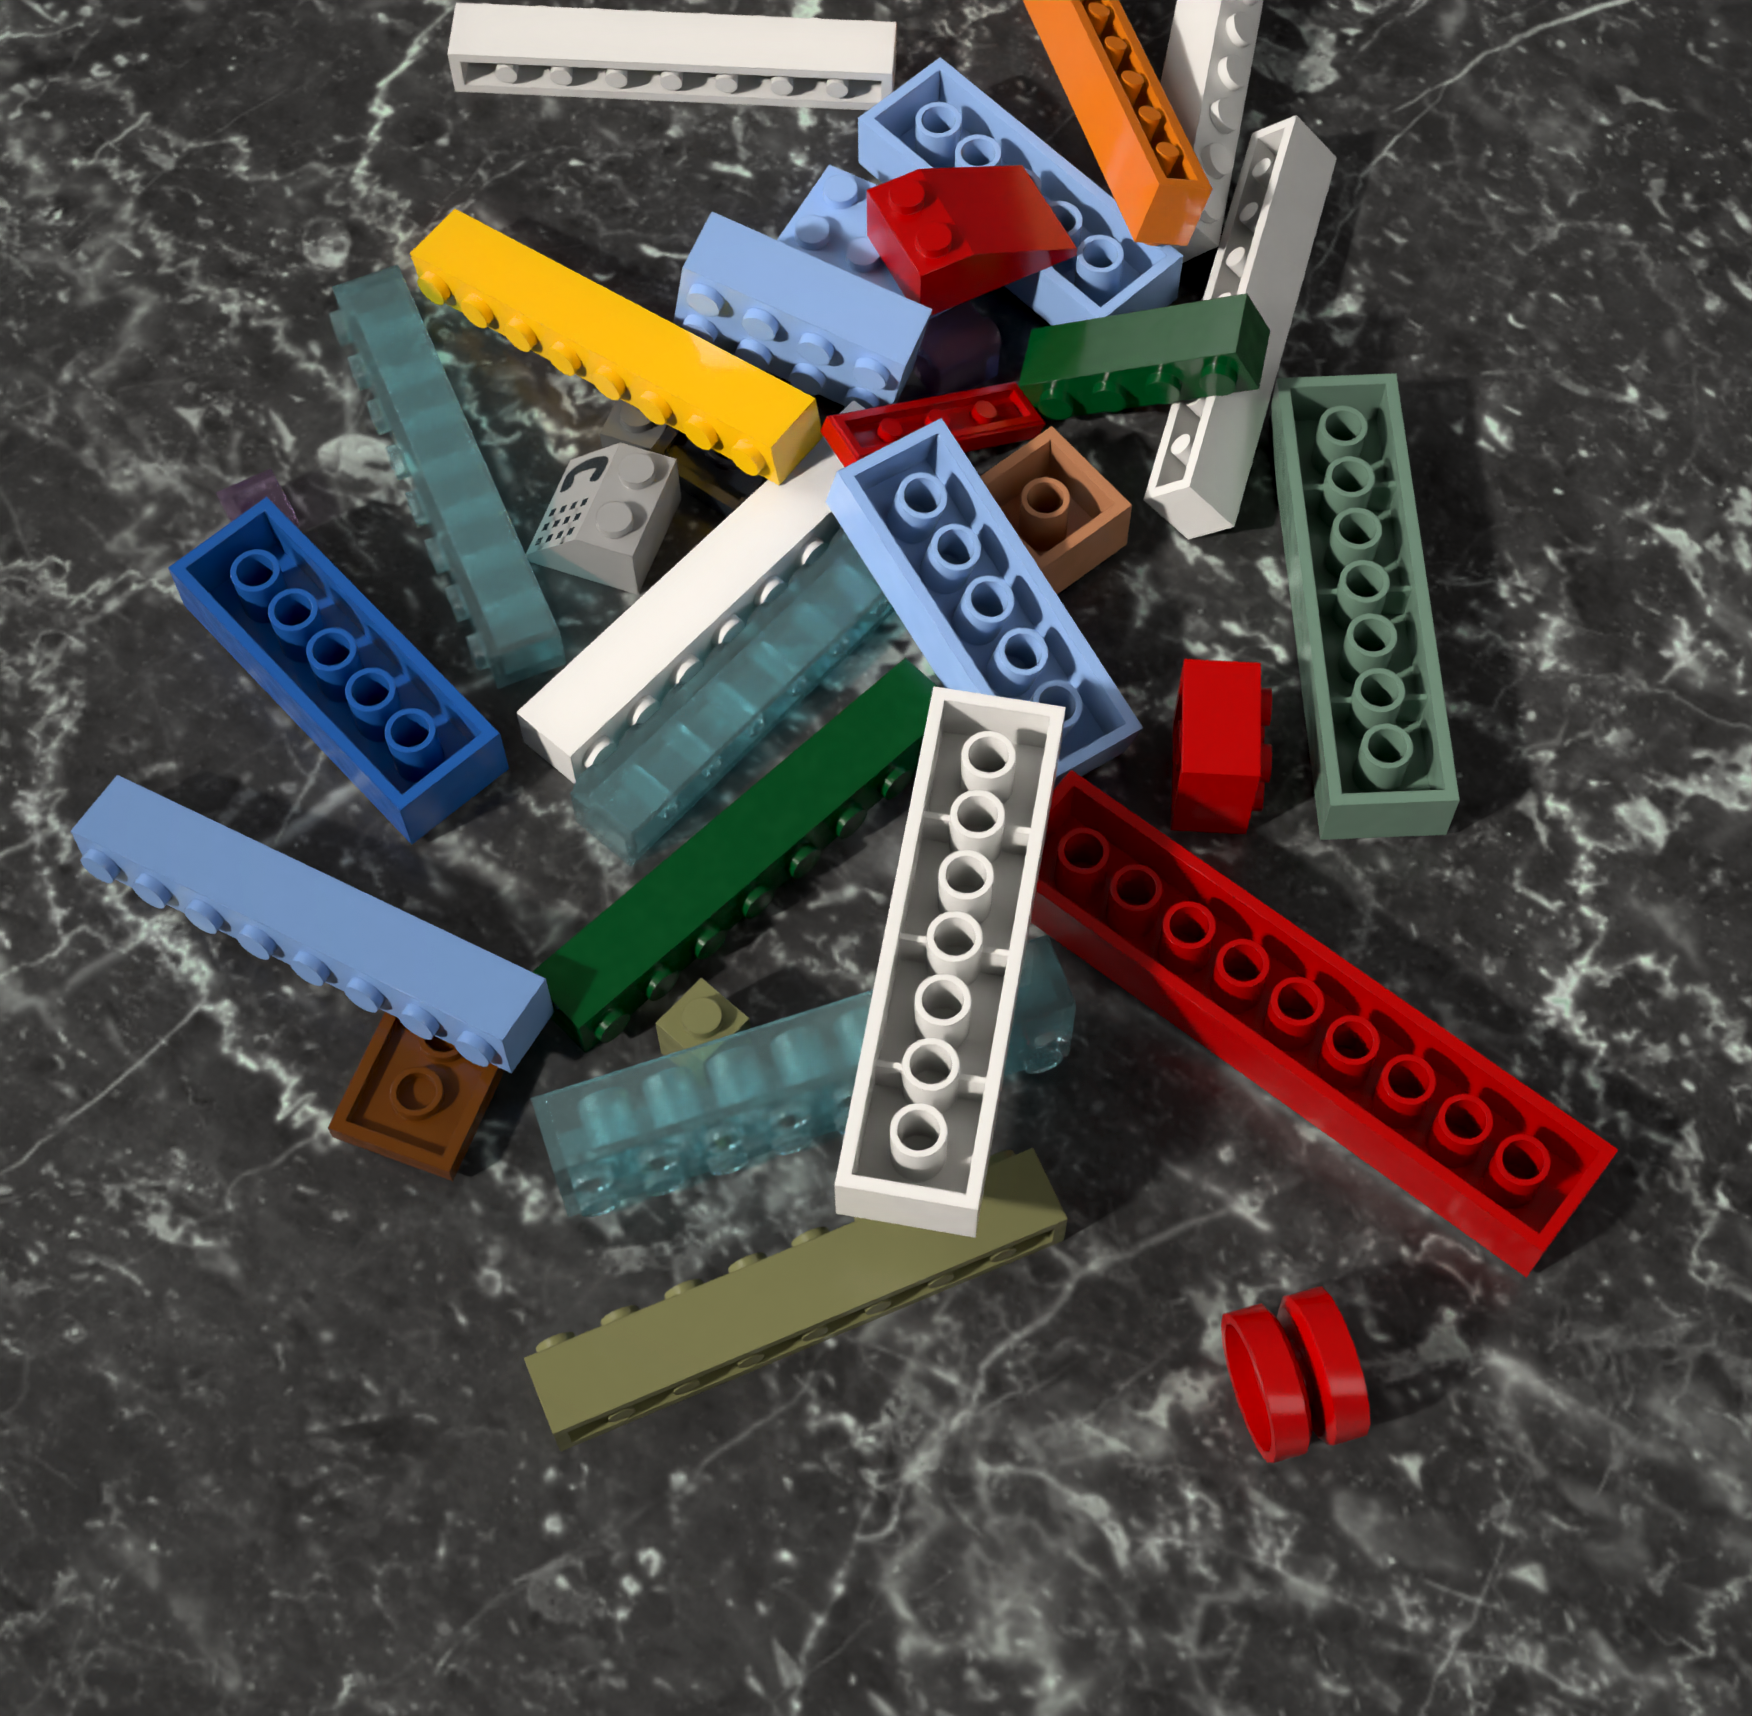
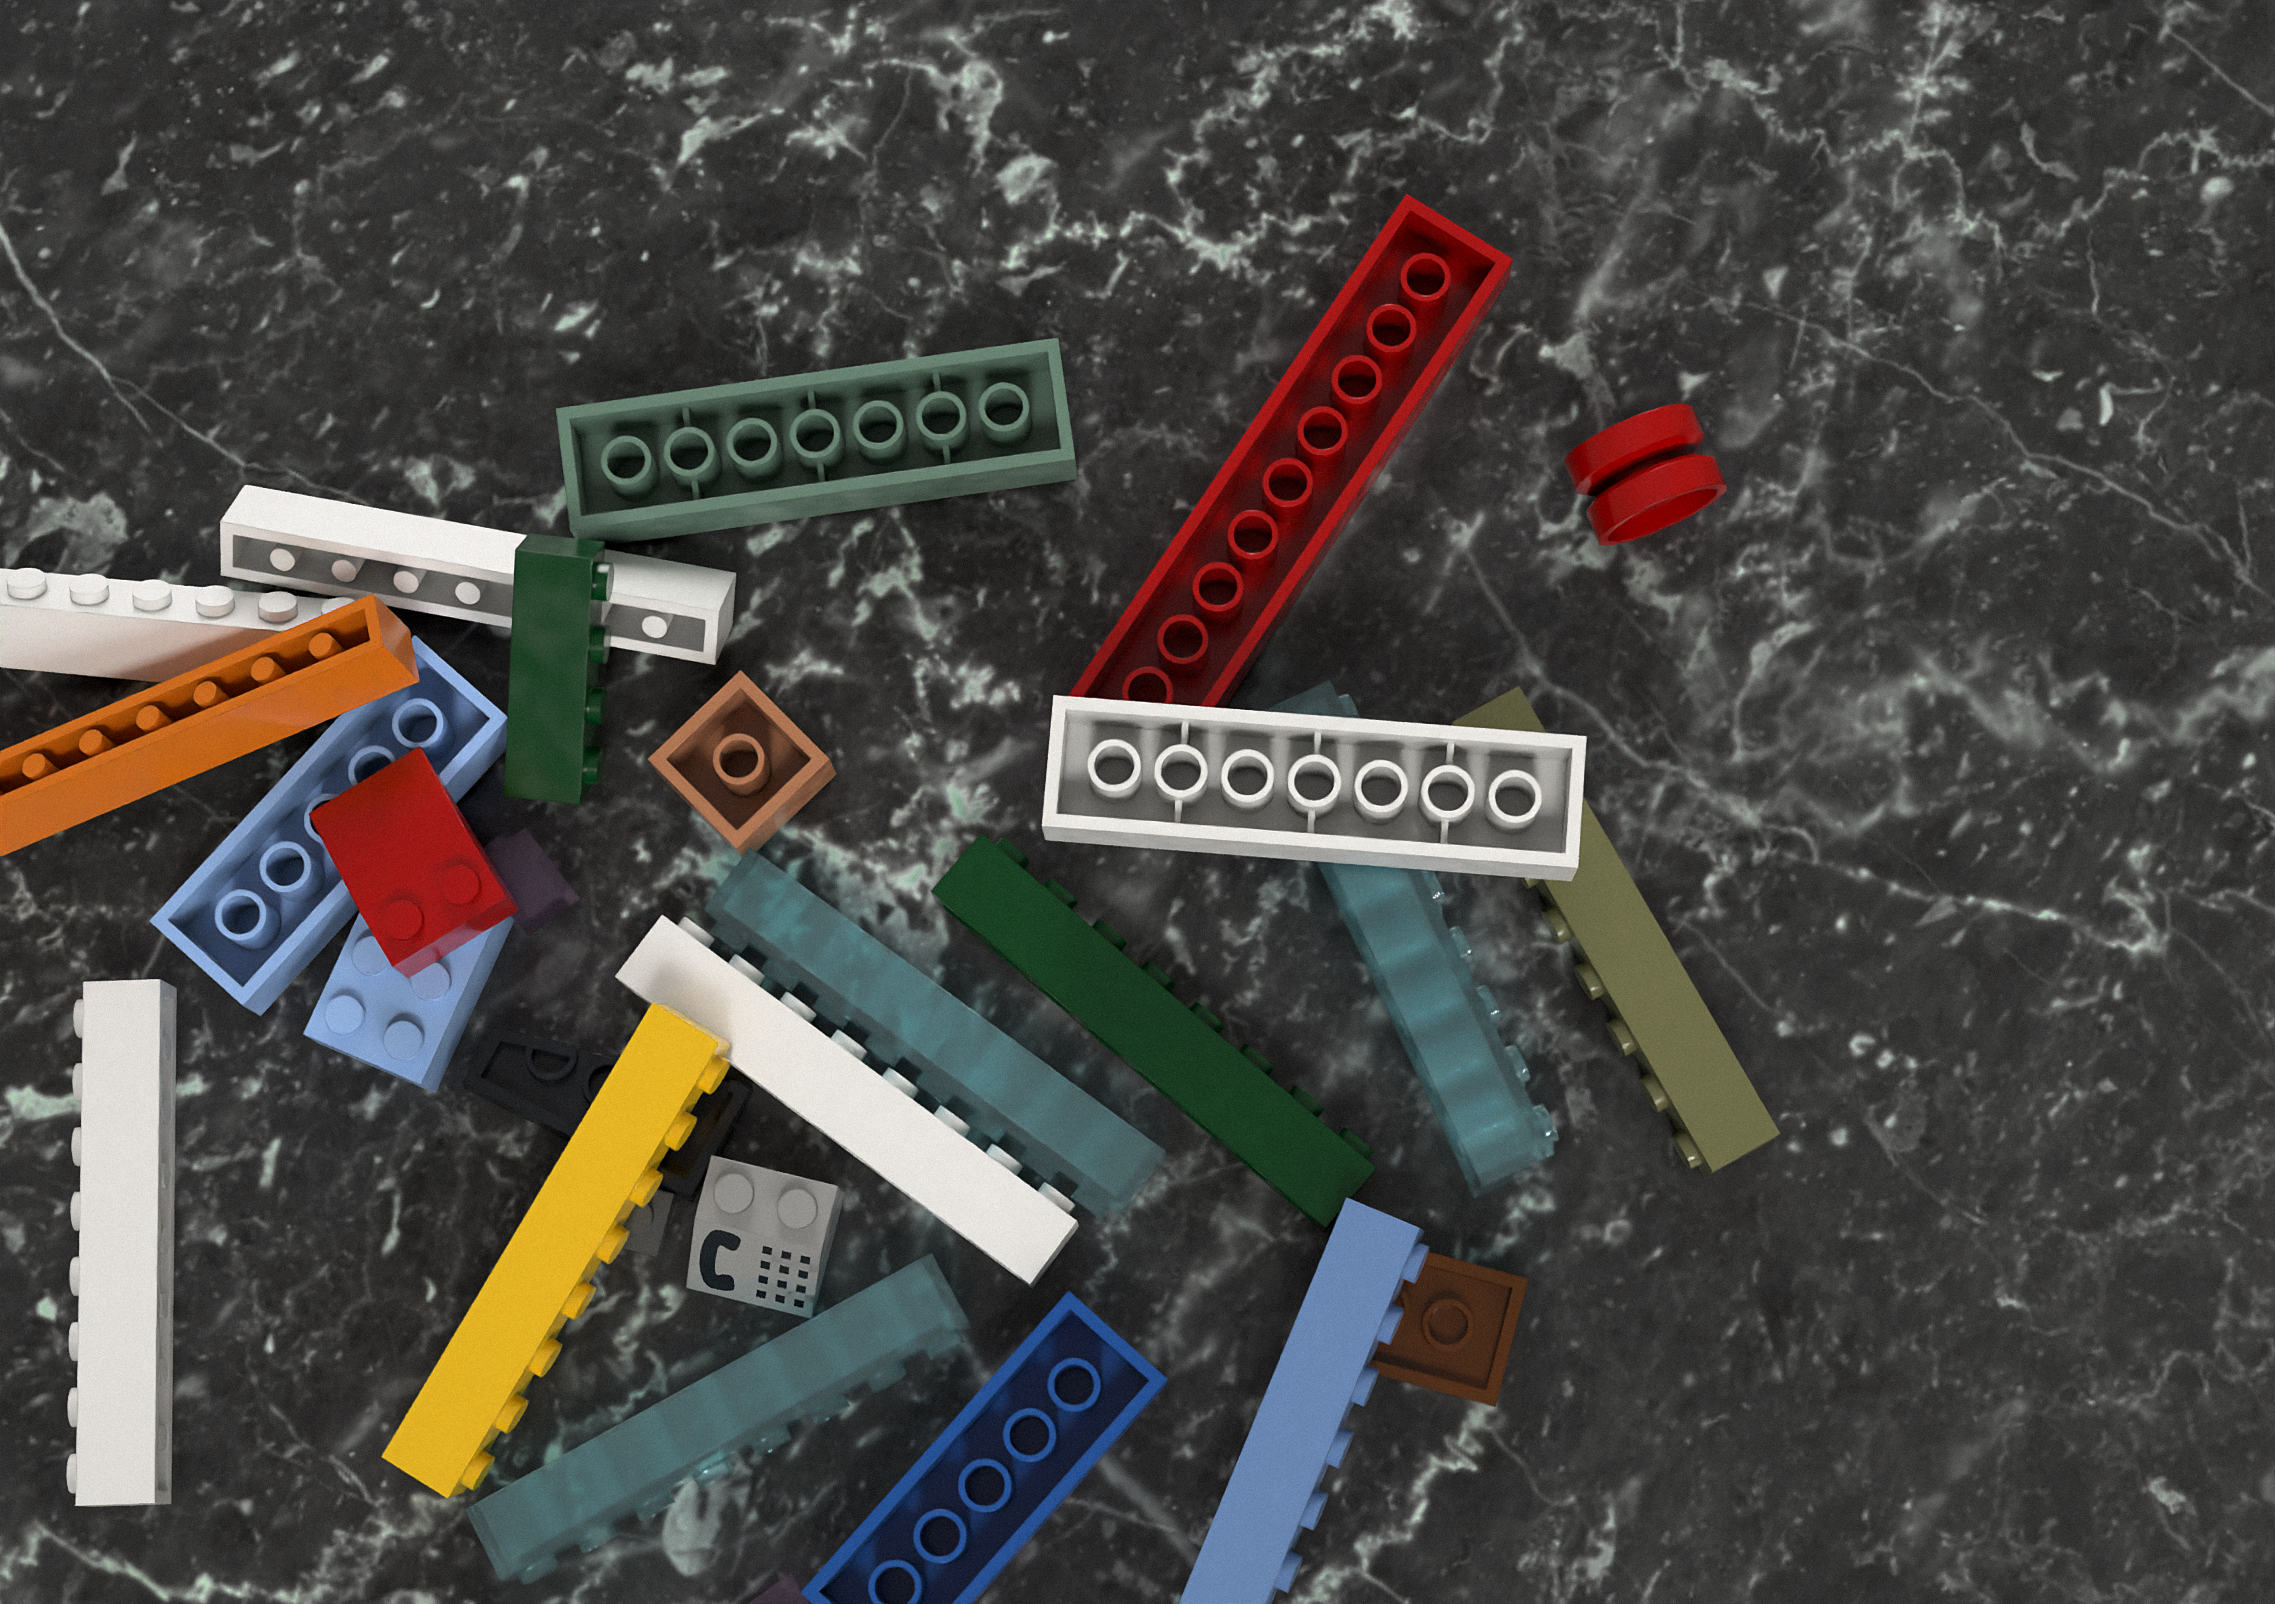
camera: 90 degrees left, 15 degrees up
(699, 1018) = (1360, 1049): olive brick -> none
(799, 316) = (533, 1038): light blue brick -> none
(974, 417) = (644, 889): red tile -> none
(976, 591) = (878, 815): light blue brick -> none
(1219, 746) = (1006, 572): red brick -> none

